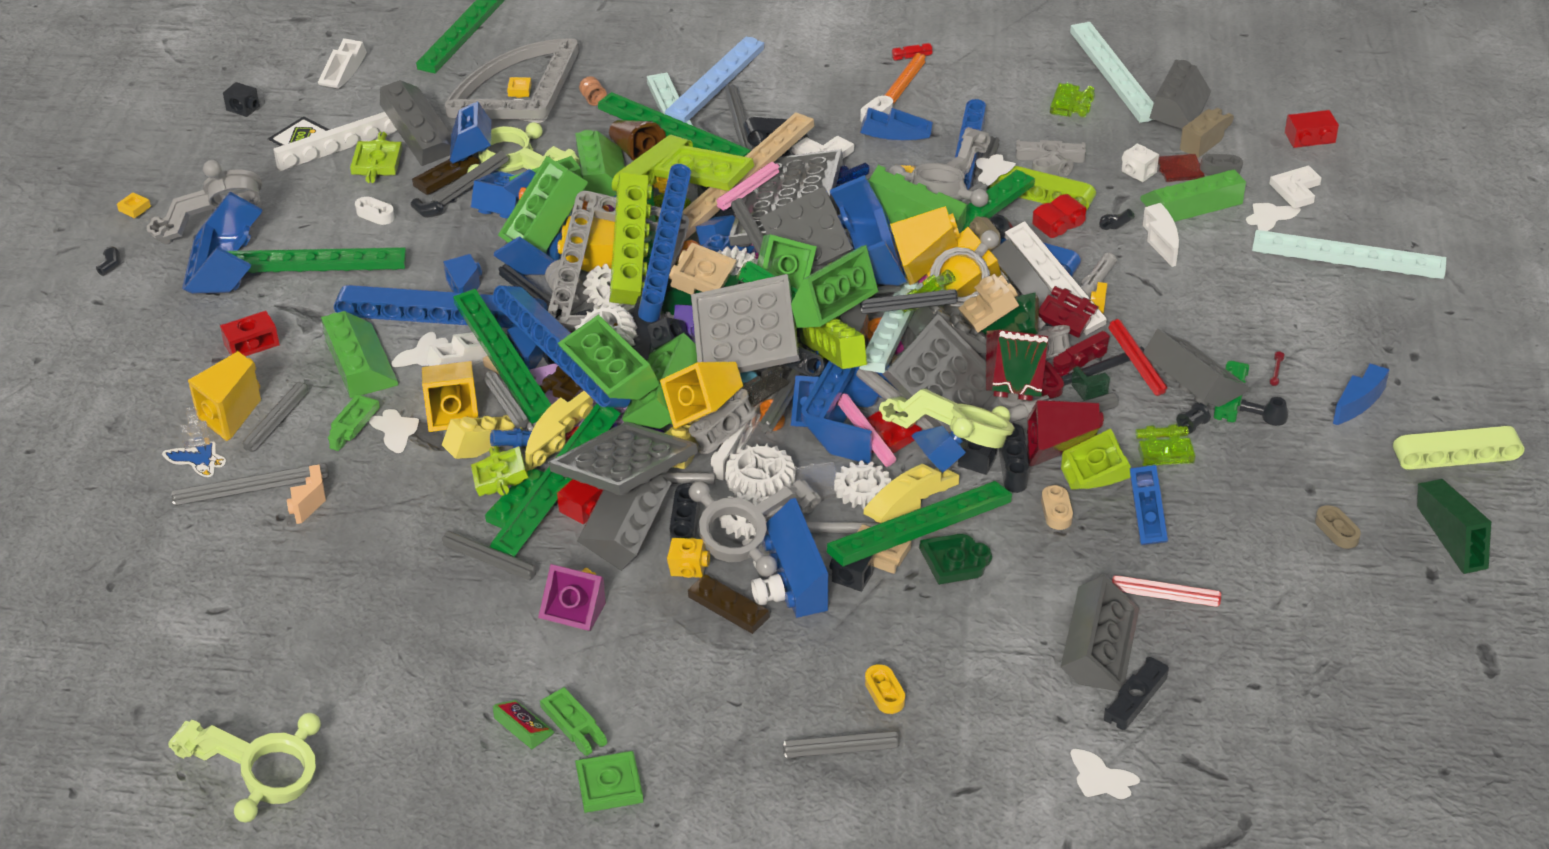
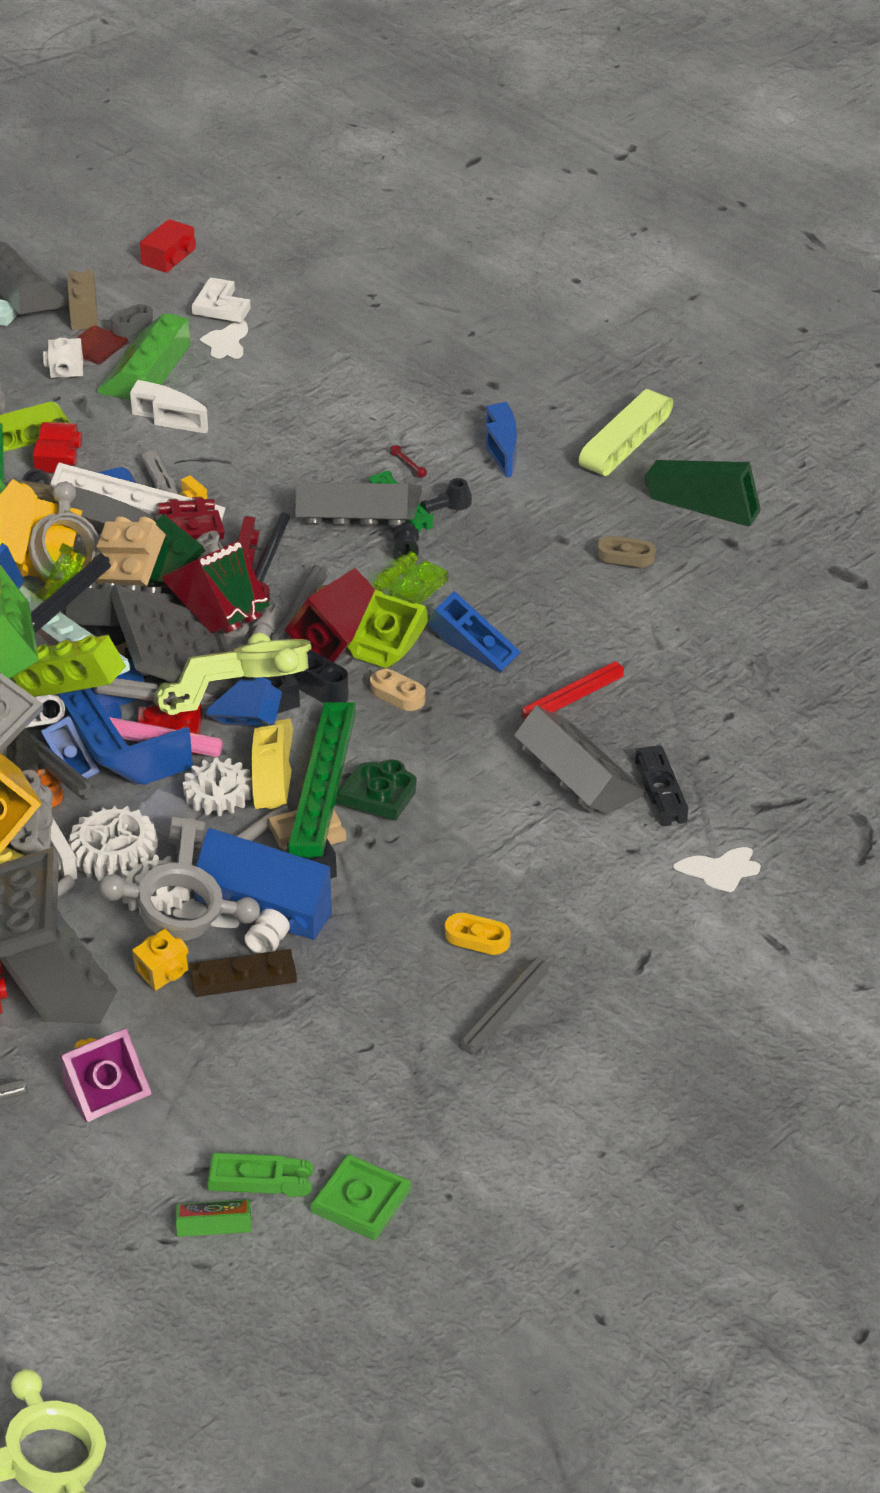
camera: 50 degrees left, 0 degrees up
(684, 514) = (102, 931): black beam -> none
(1090, 386) = (285, 575): clear green panel -> none
(1115, 221) = (106, 425): black arm -> none
(1137, 357) = (295, 522): red axle -> none
(1349, 254) = (337, 333): light aqua plate -> none

